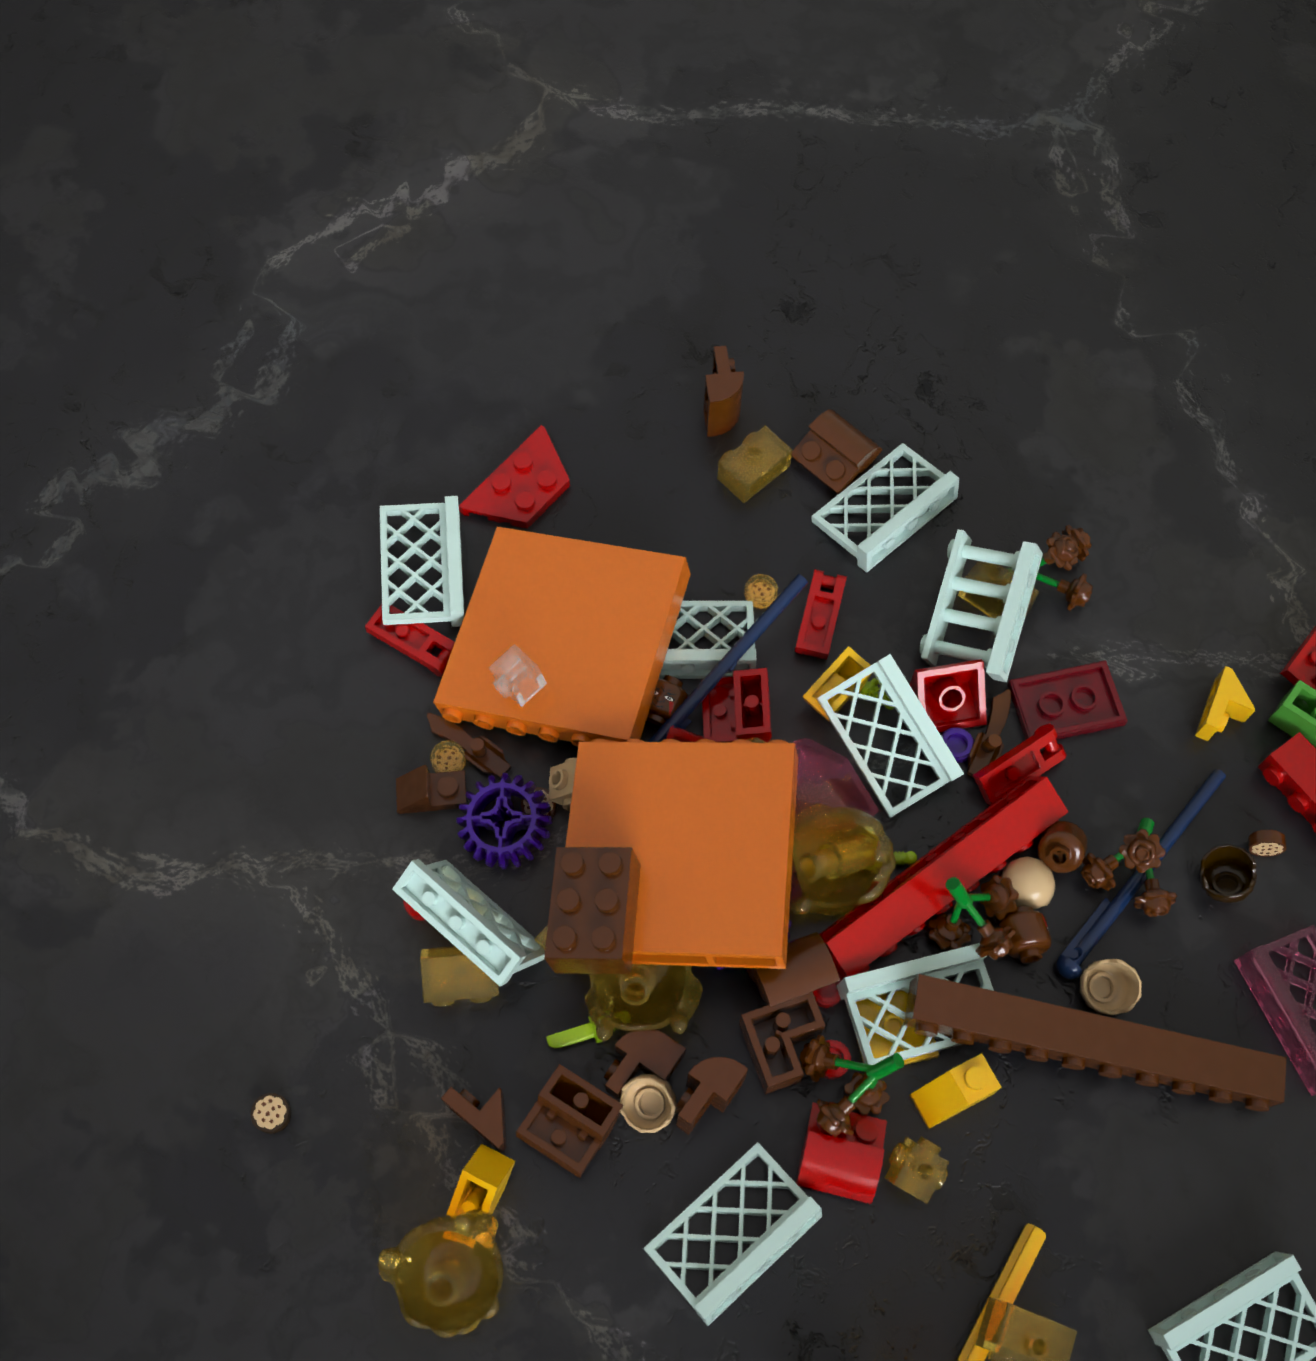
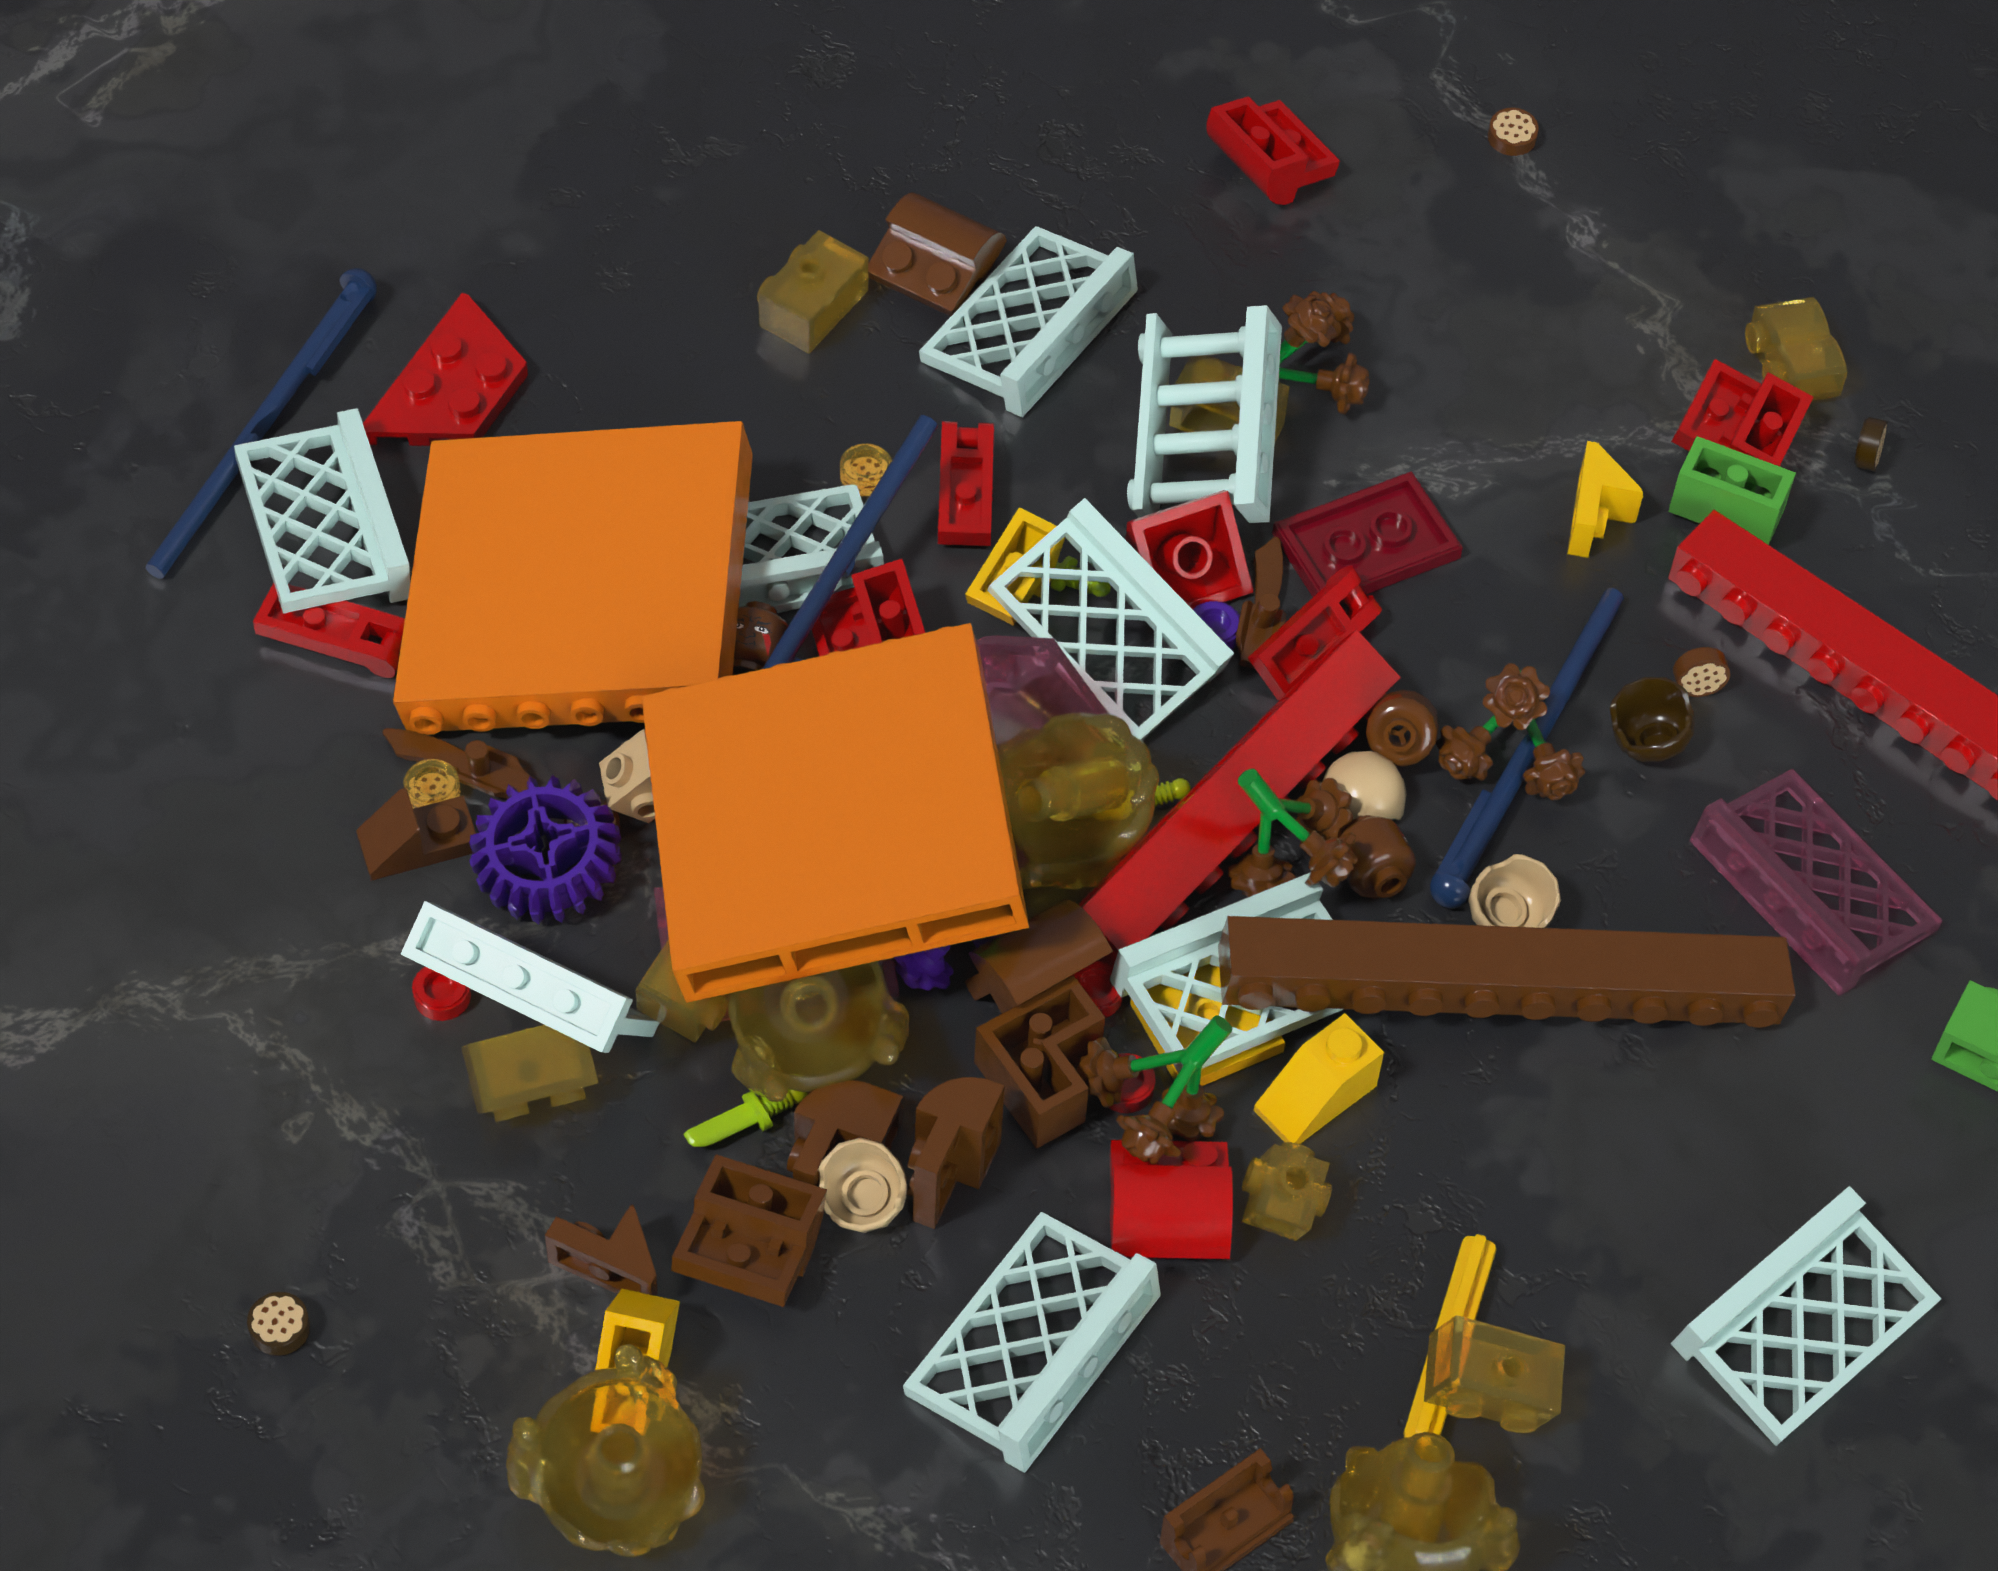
camera: 15 degrees left, 10 degrees down
(440, 453) = (358, 290): none -> dark blue bar
(517, 676) = (522, 627): clear brick -> none
(593, 910) = (724, 895): reddish brown brick -> none
(722, 394) = (740, 197): reddish brown brick -> none
(1063, 416) = (1270, 147): none -> red brick
(1220, 430) = (1513, 131): none -> tile

